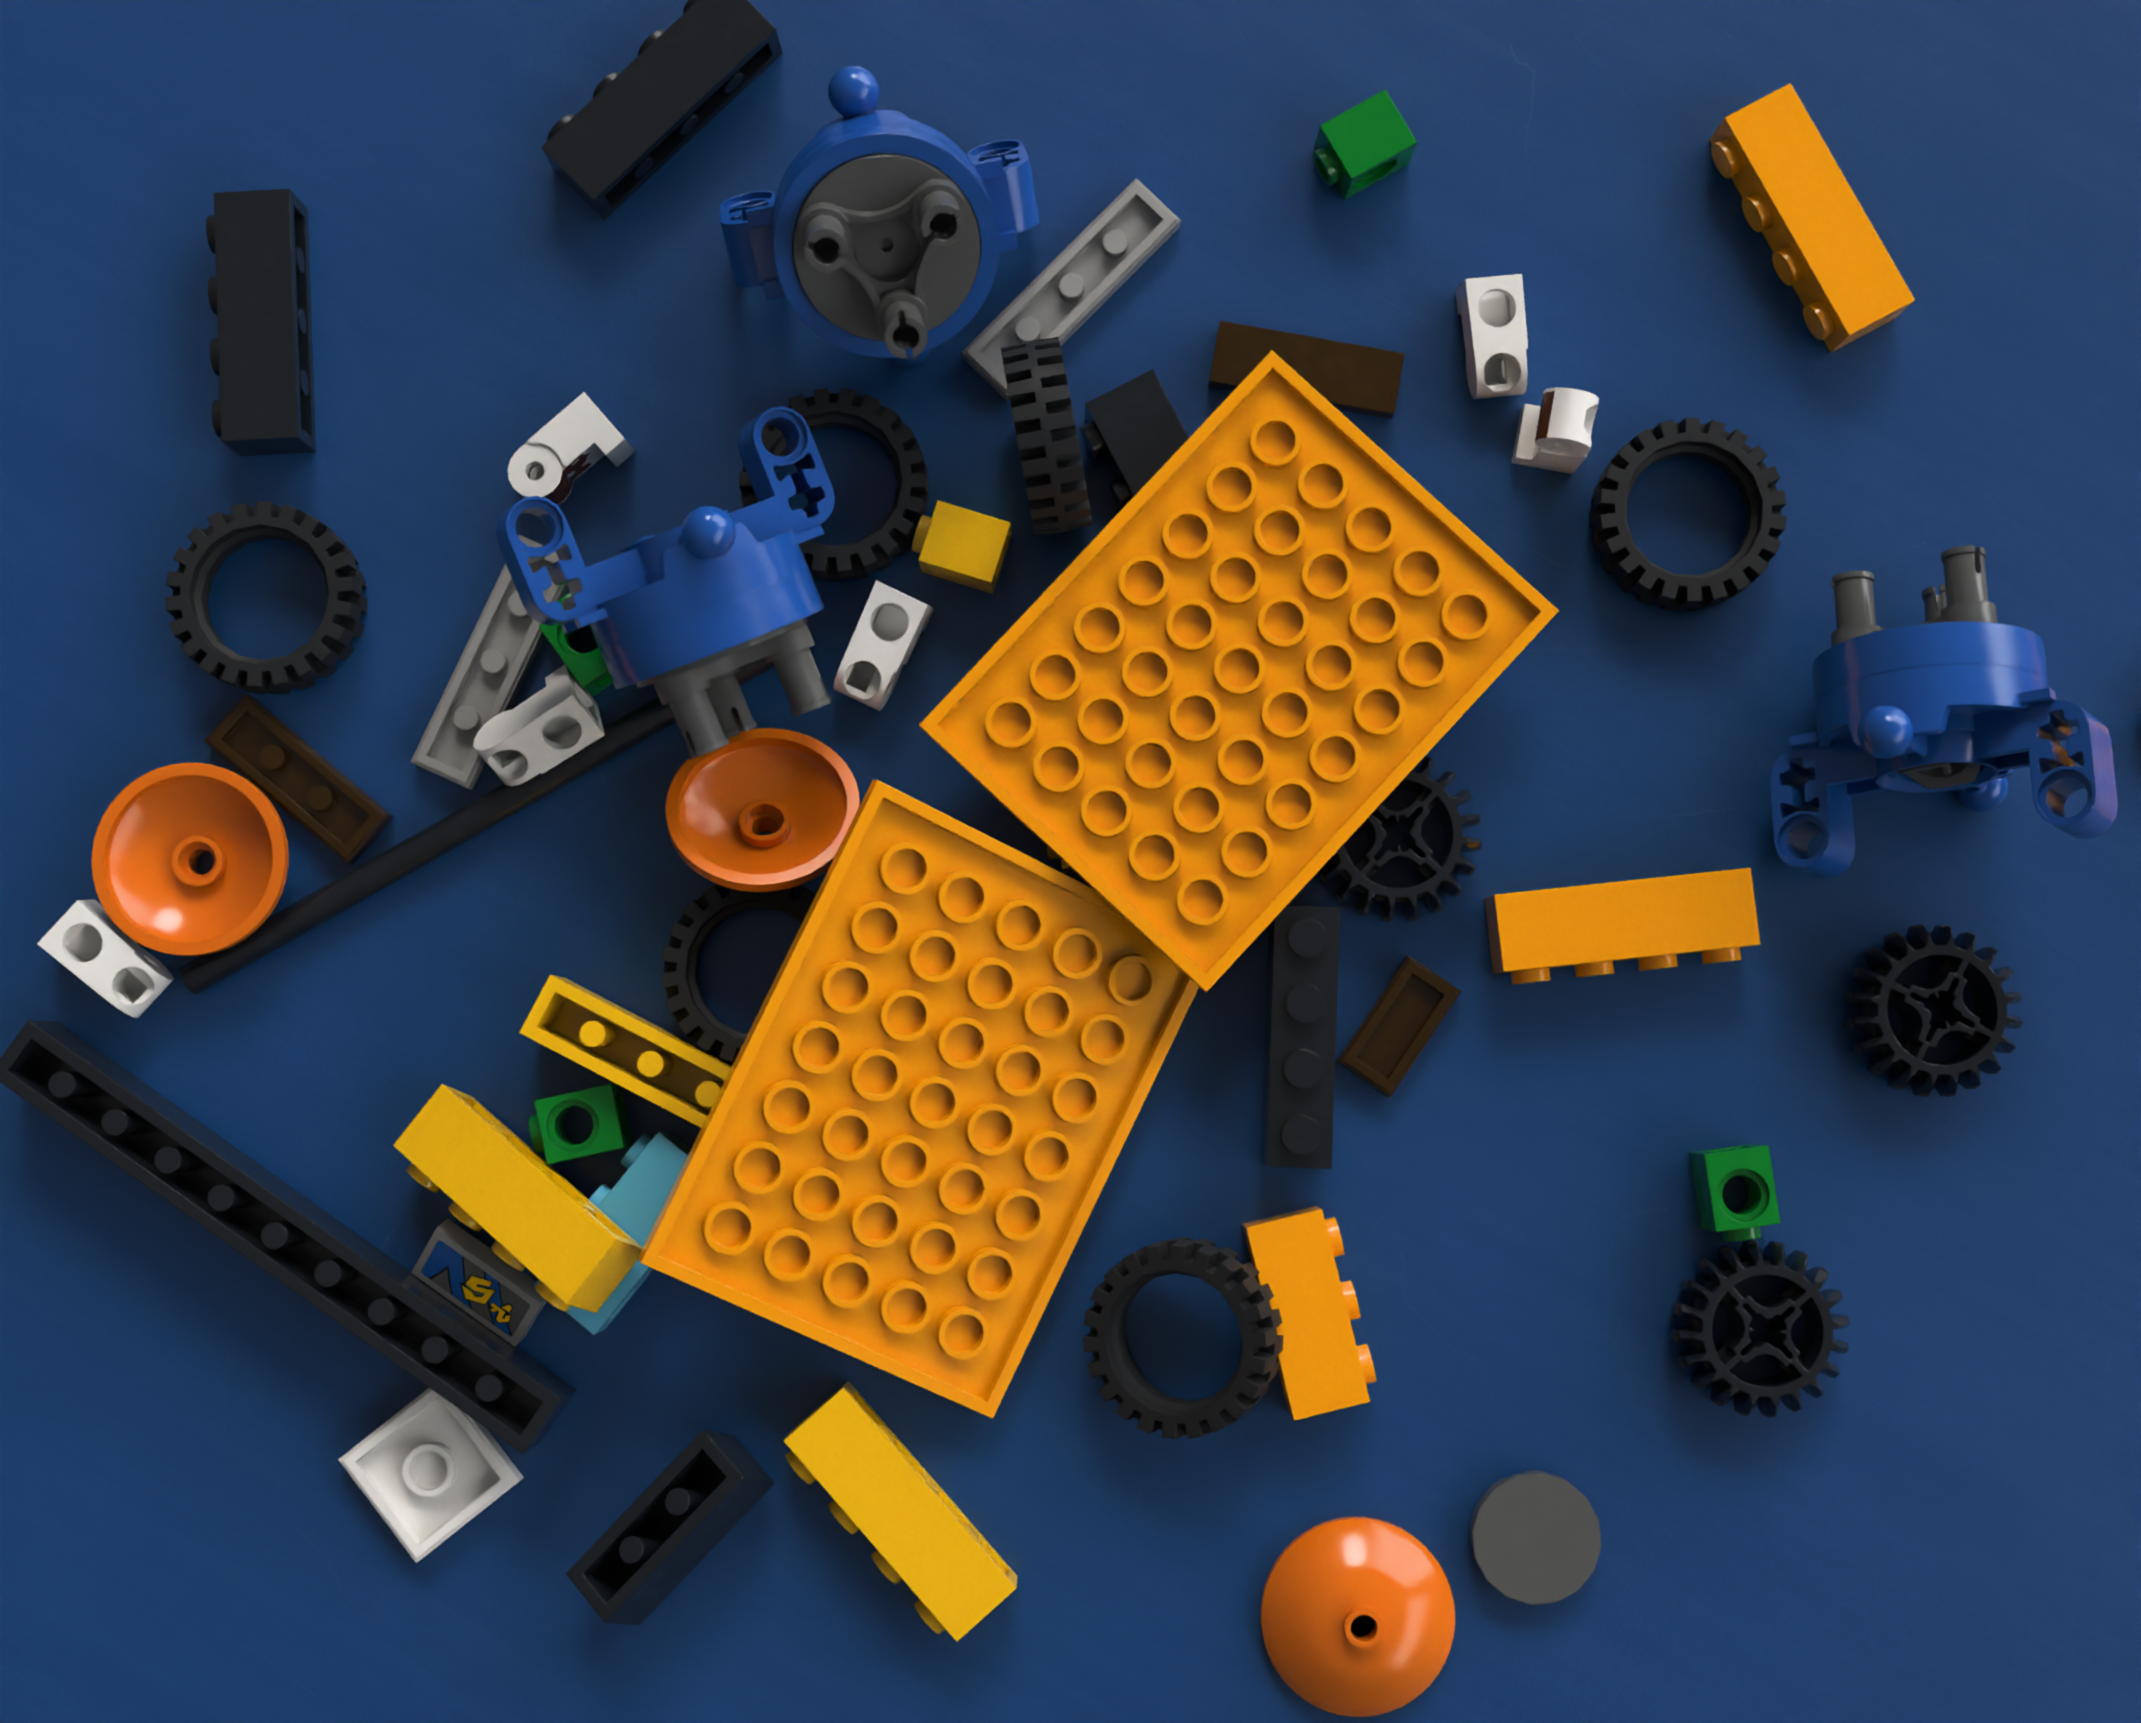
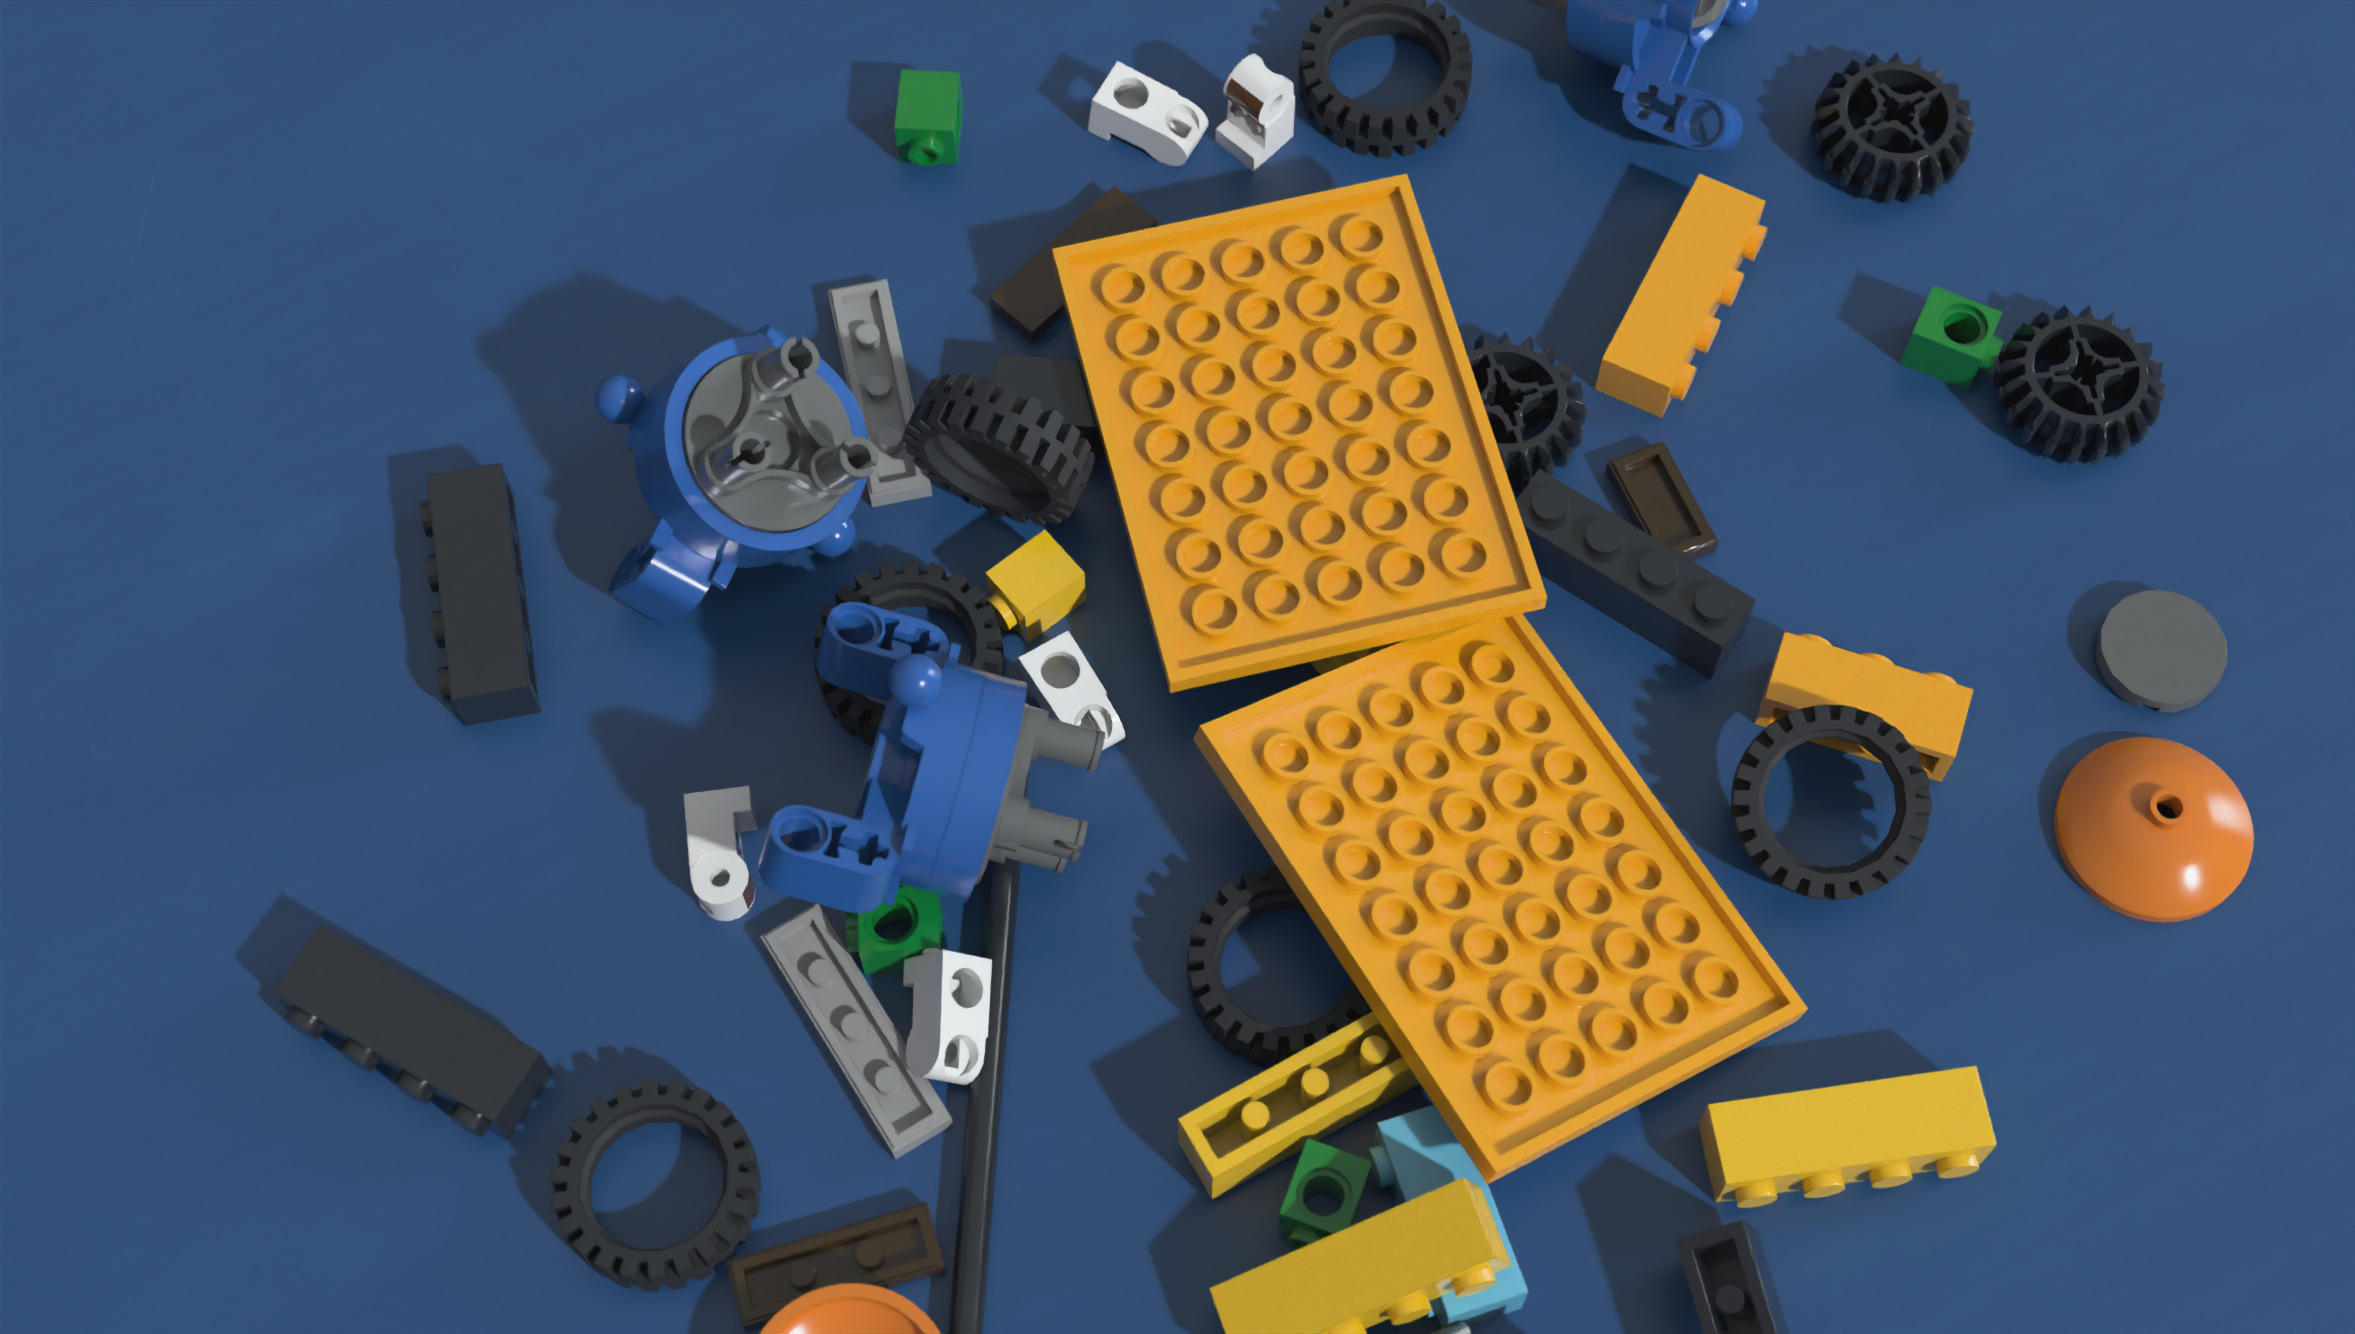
camera: 55 degrees left, 20 degrees down
(759, 785) = (1151, 867): orange dish -> none

